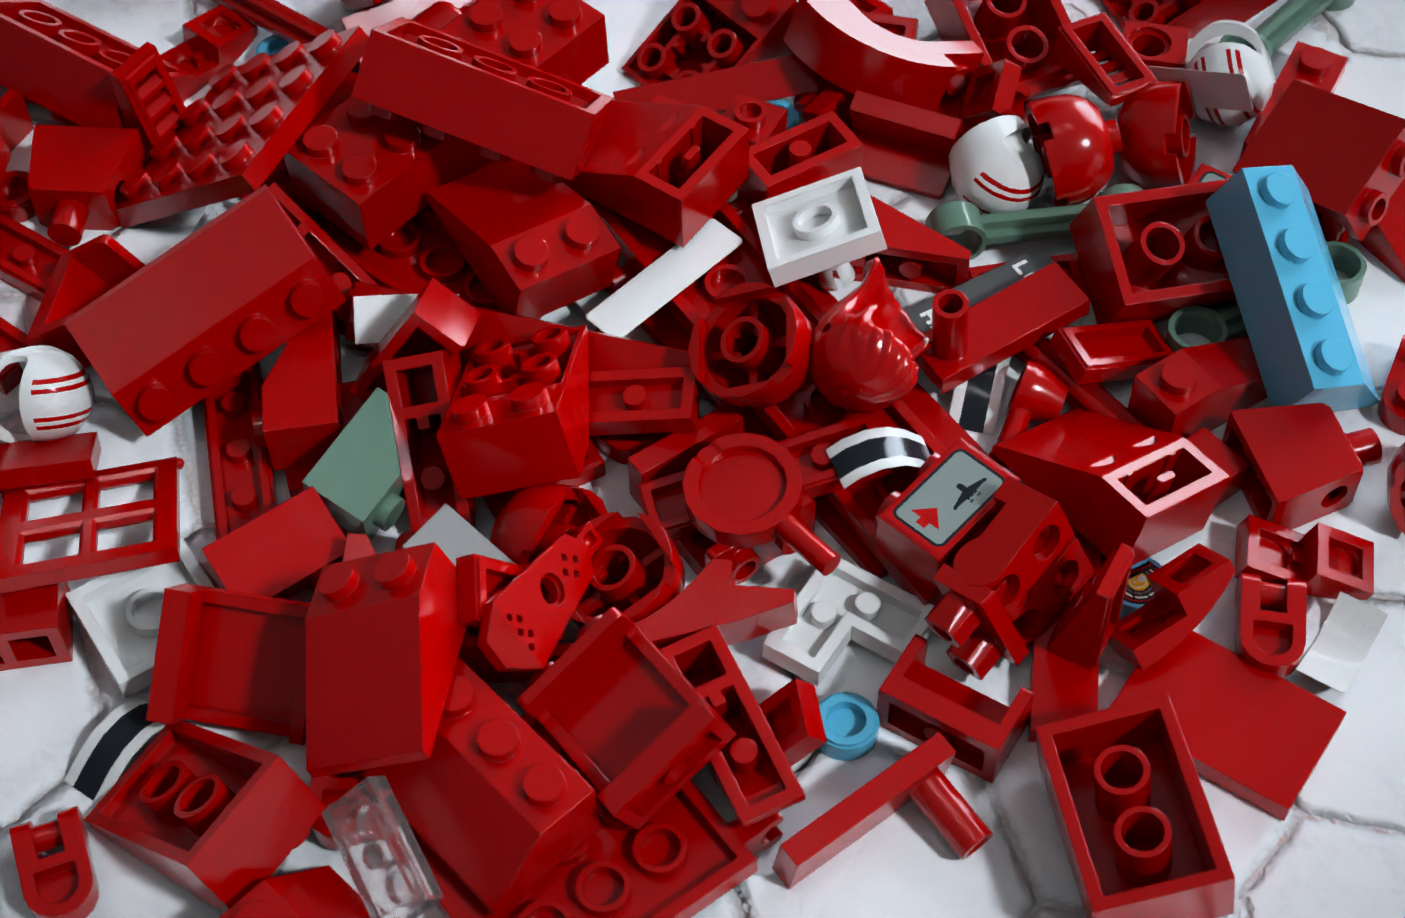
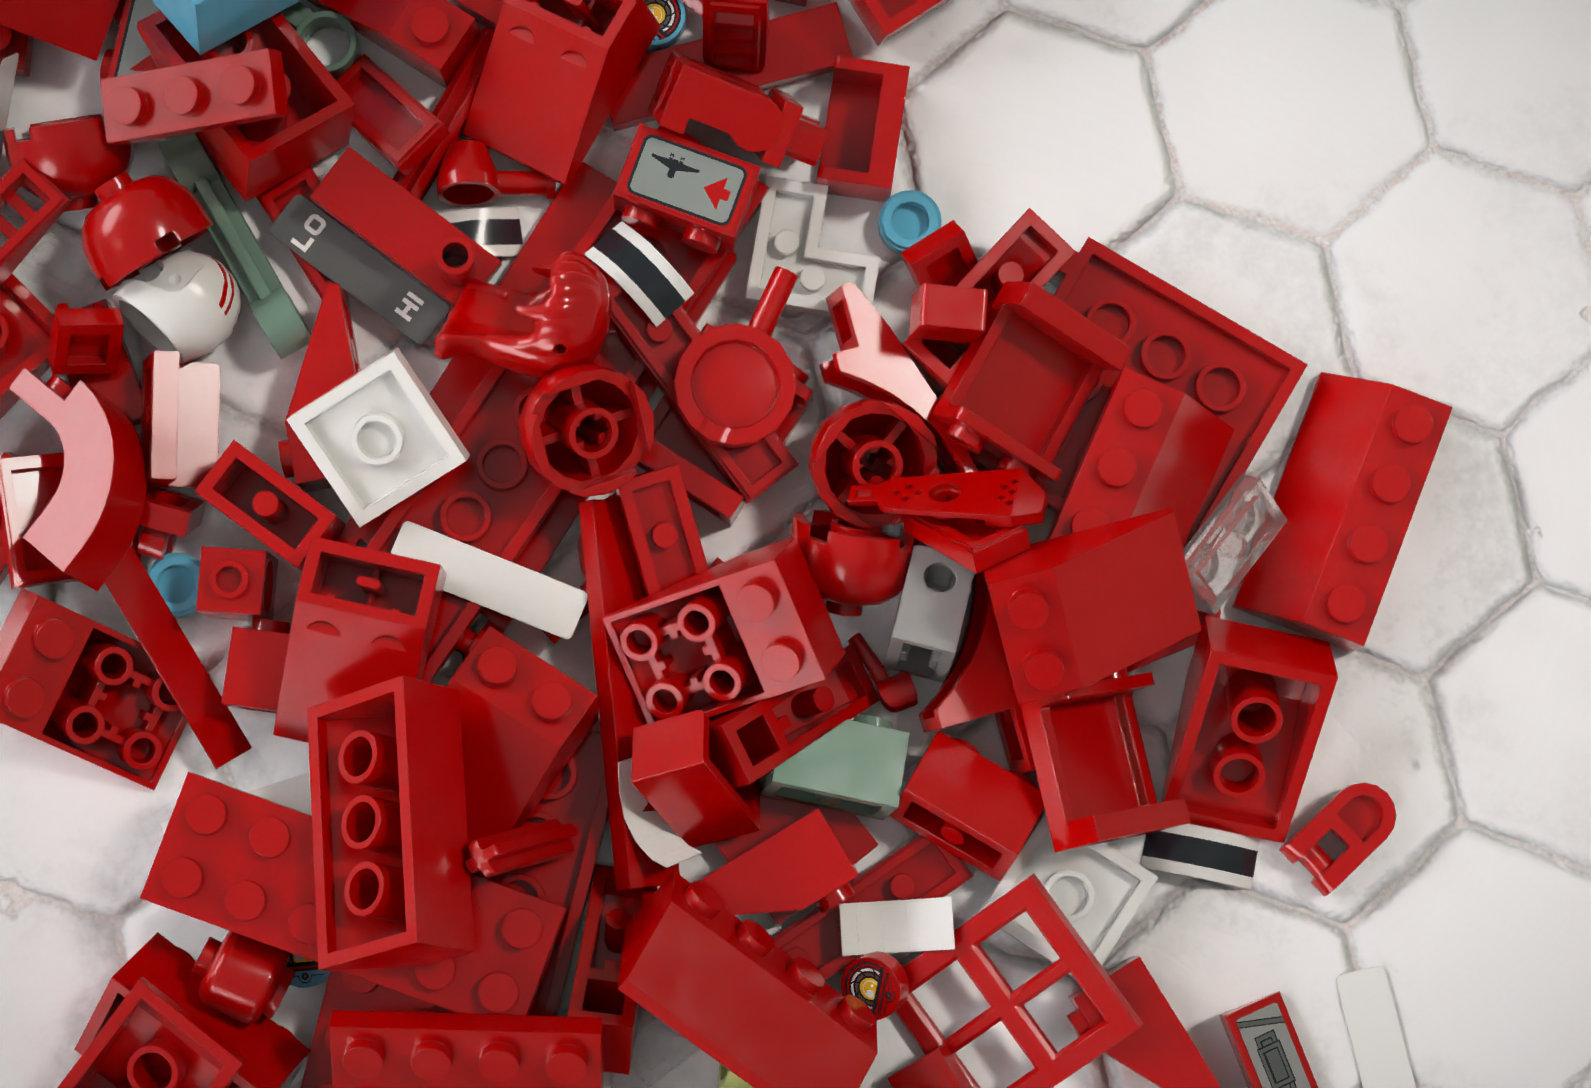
camera: 115 degrees left, 30 degrees up
(175, 446) = (876, 981): none -> tile
(217, 466) = (897, 926): none -> white sticker
(425, 196) = (520, 847): none -> red axle
(722, 652) = (948, 313): none -> red piece
(914, 777) = (952, 141): red piece -> none
(1165, 177) = (194, 97): none -> red plate

